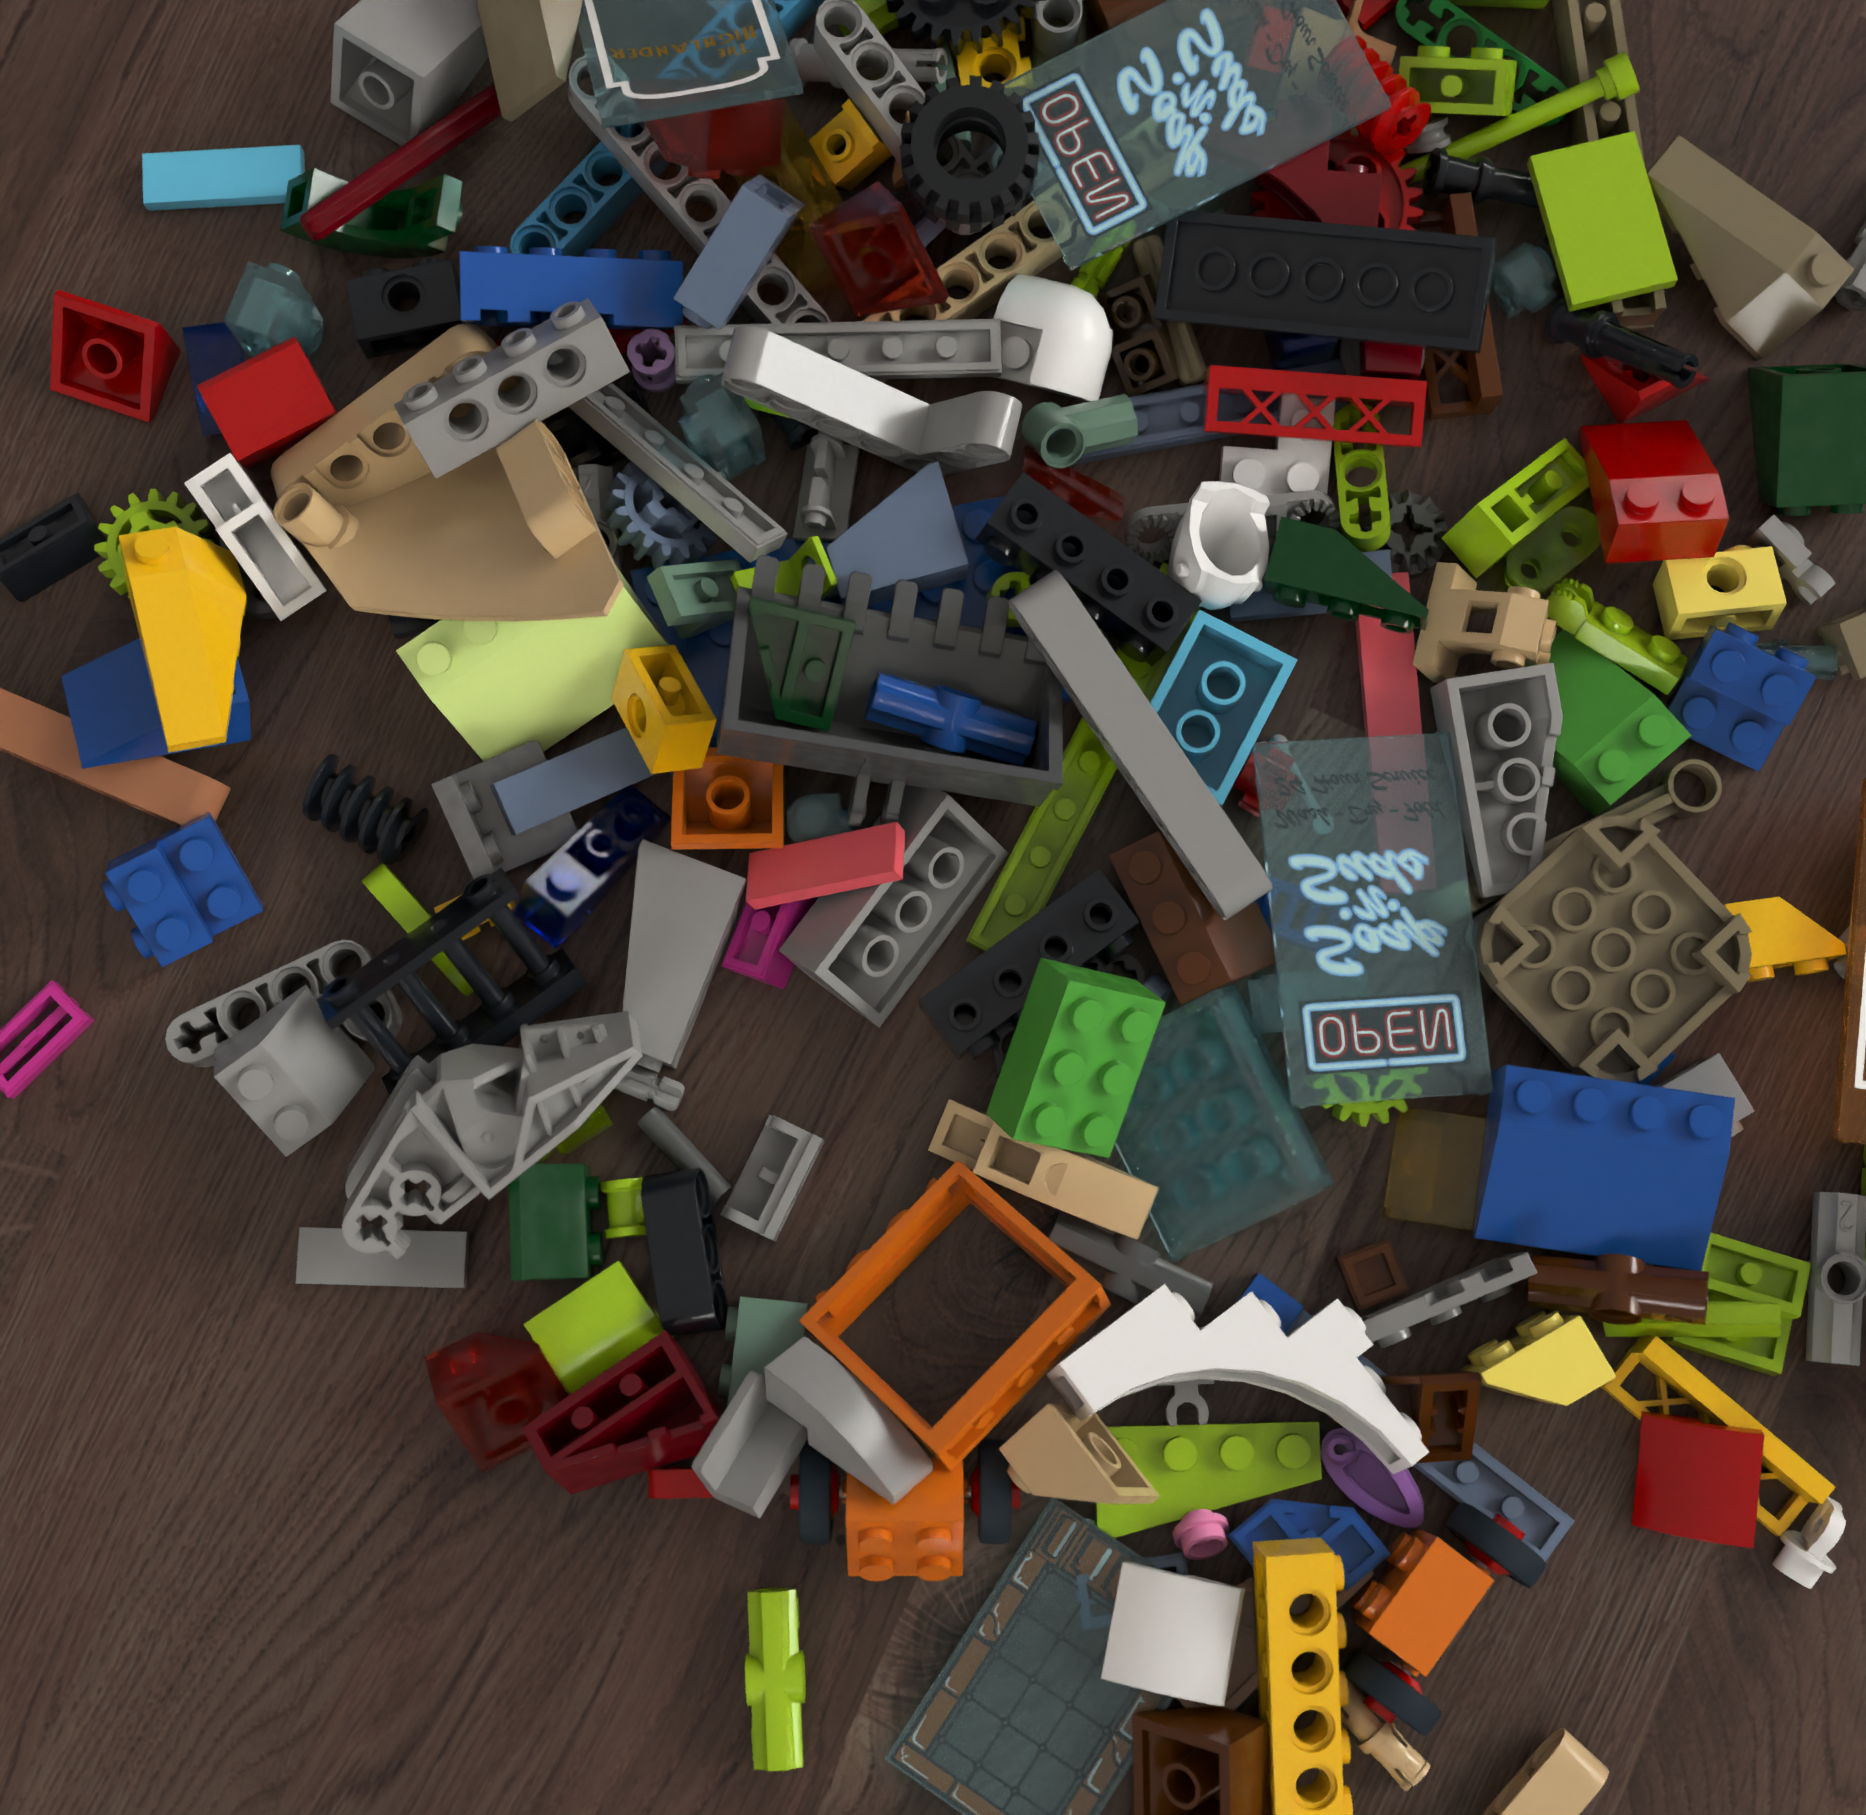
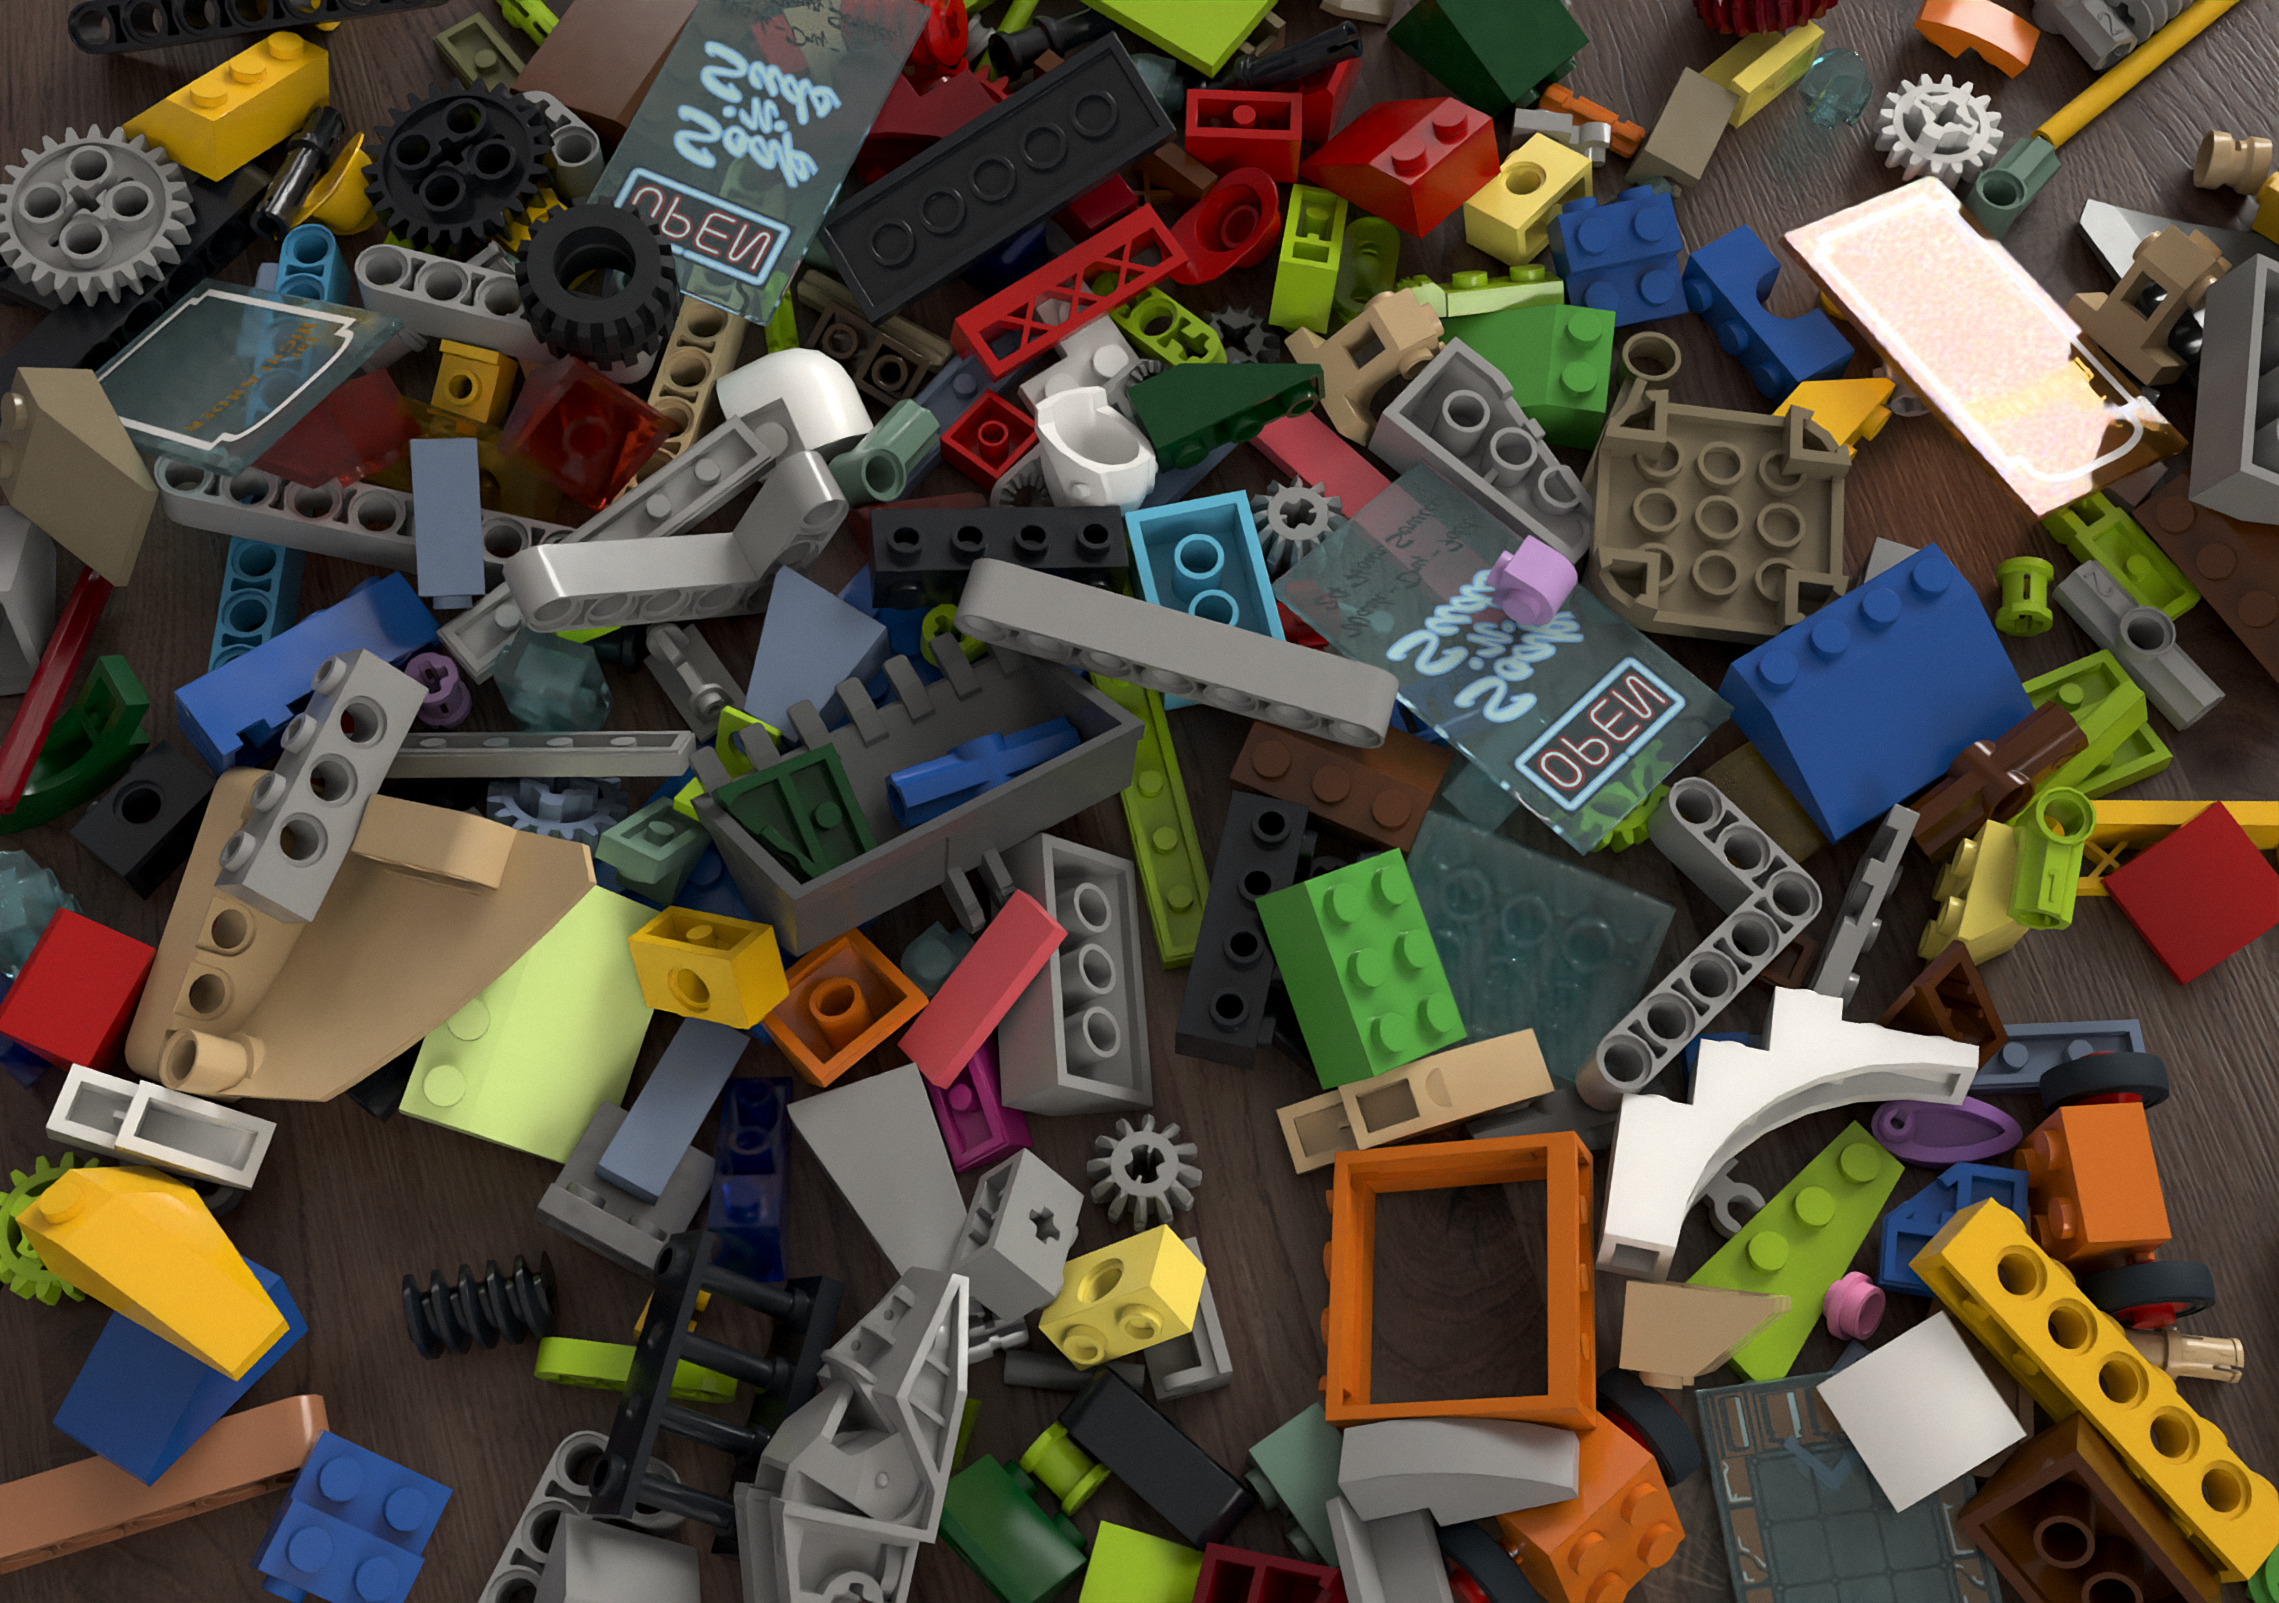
camera: 40 degrees left, 15 degrees down
(712, 1045) = (1018, 1236): none -> light grey brick
(742, 1140) = (1125, 1298): none -> light yellow brick
(841, 1084) = (1156, 1150): none -> light grey gear
(1168, 469) = (988, 439): none -> red piece
(1316, 1245) = (1717, 964): none -> light grey beam
(1329, 692) = (1293, 521): none -> light grey gear
(1429, 892) = (1532, 582): none -> lavender plate
(1474, 440) = (1229, 227): none -> red piece
(1553, 374) = (1245, 130): none -> red brick
(1578, 1382) = (2049, 863): none -> lime piece
(1793, 863) = (1726, 288): none -> blue arch
(1799, 1160) = (2011, 578): none -> lime bush
(1833, 558) = (1624, 138): none -> orange axle

